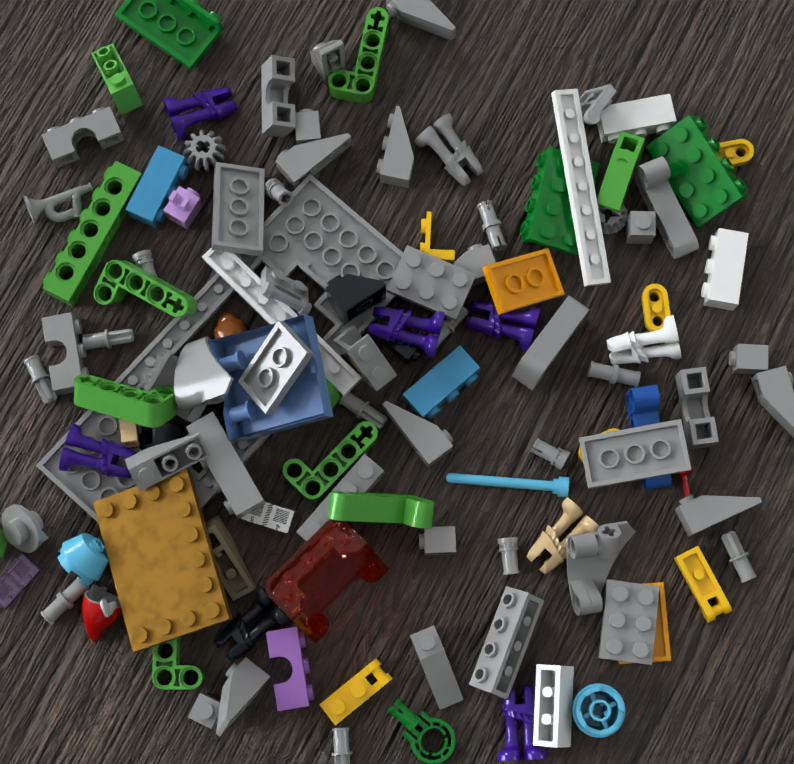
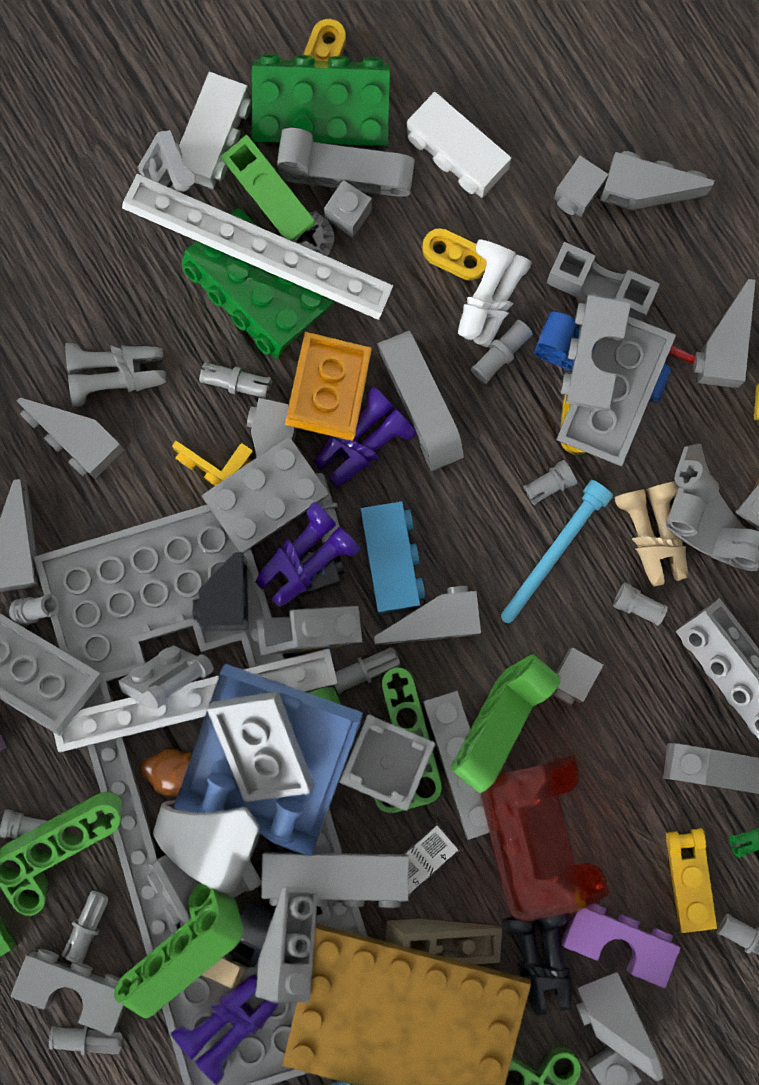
camera: 60 degrees left, 5 degrees up
(312, 452) = (387, 762): none -> light grey container
(667, 415) = (599, 320): none -> light grey arch

